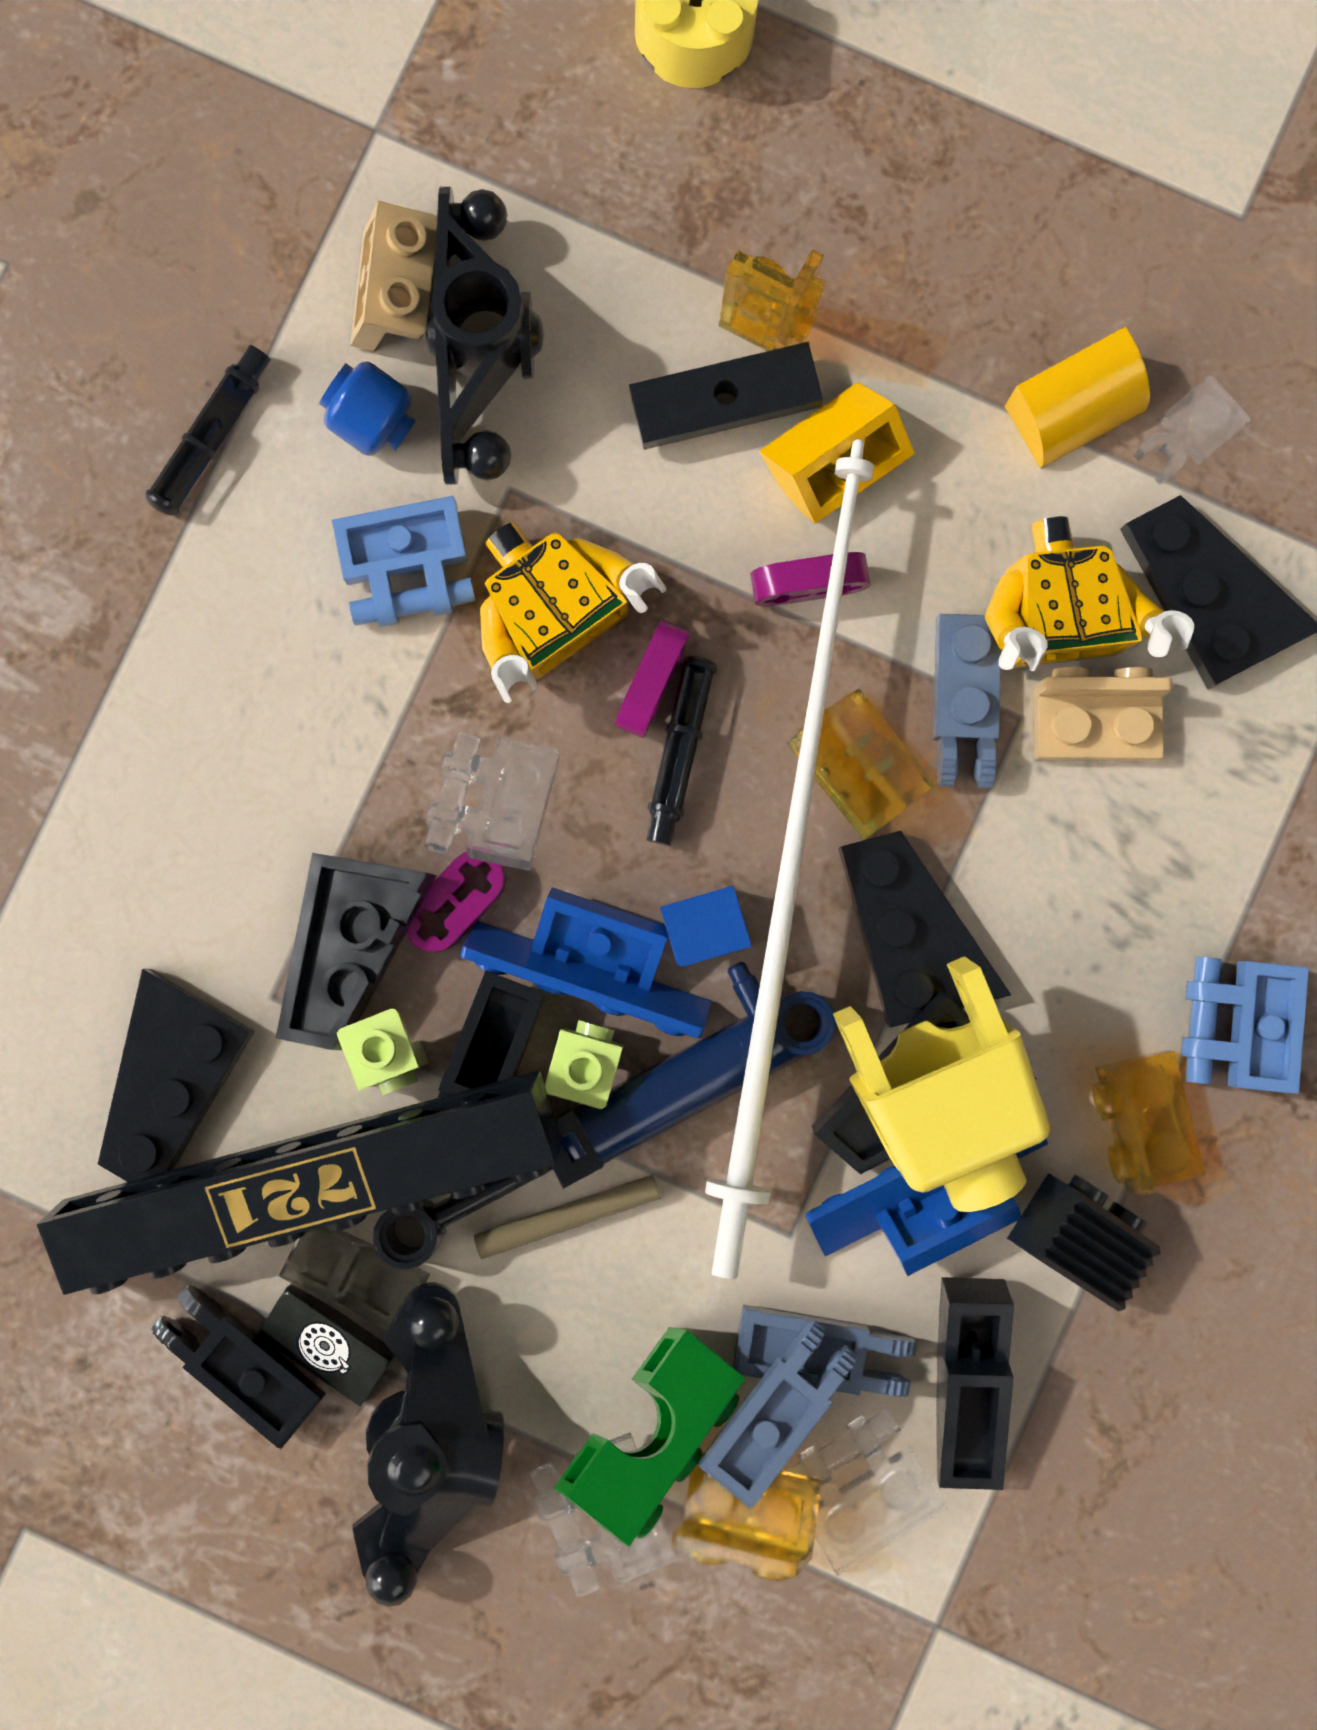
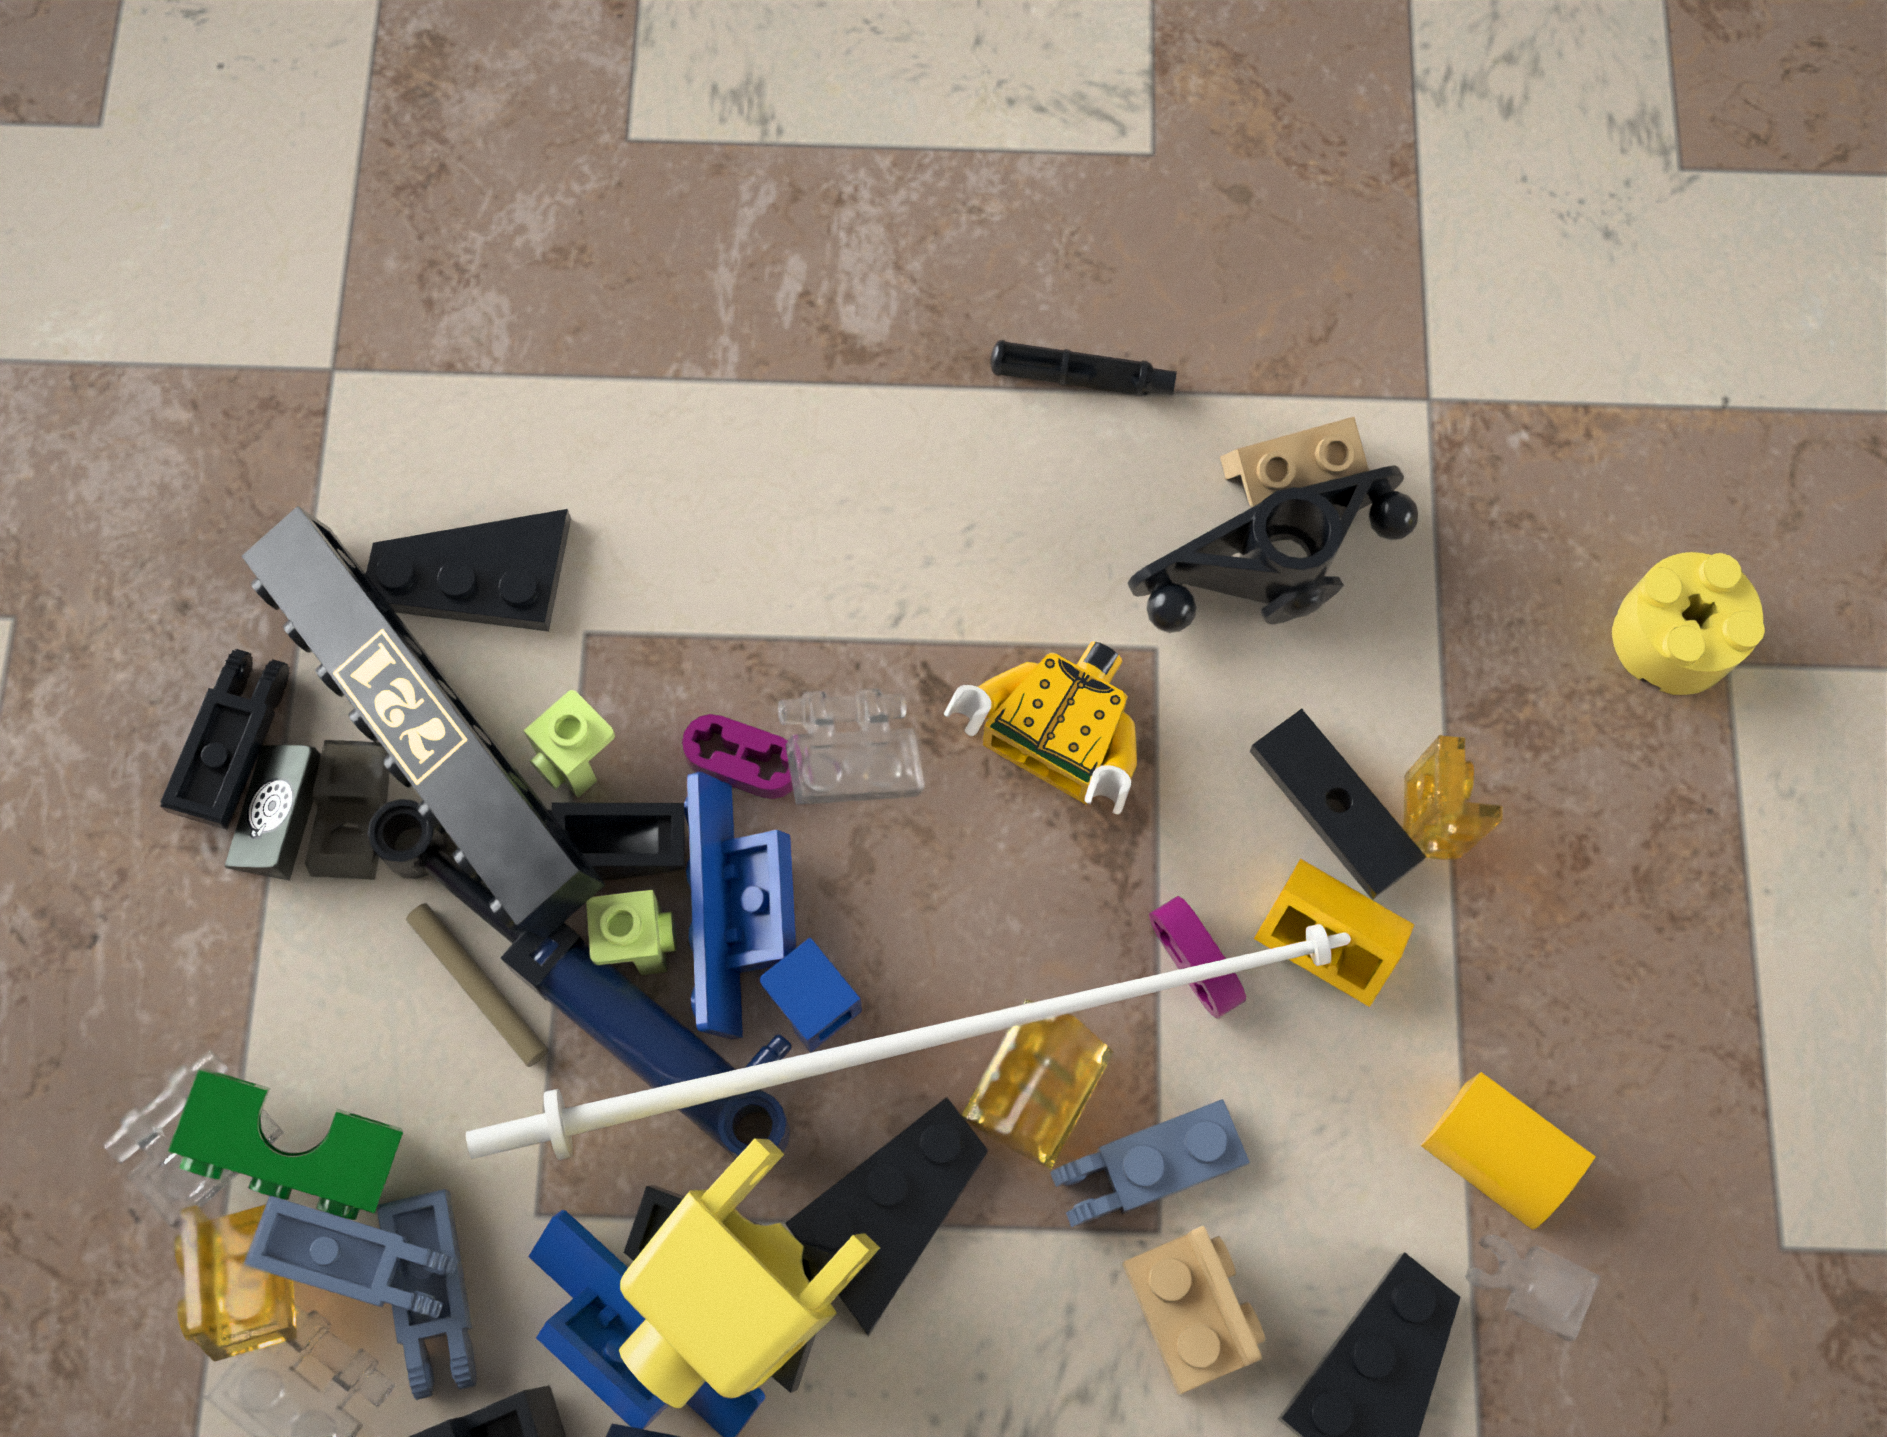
camera: 65 degrees right, 15 degrees down
(344, 943) = (660, 671): black wing -> none
(367, 408) = (1166, 490): blue head -> none
(399, 543) = (1057, 570): medium blue plate -> none
(425, 1445) = (206, 937): black piece -> none
(652, 678) = (1032, 847): magenta beam -> none
(680, 748) = (977, 902): black piece -> none
(1074, 605) = (1289, 1225): yellow torso -> none

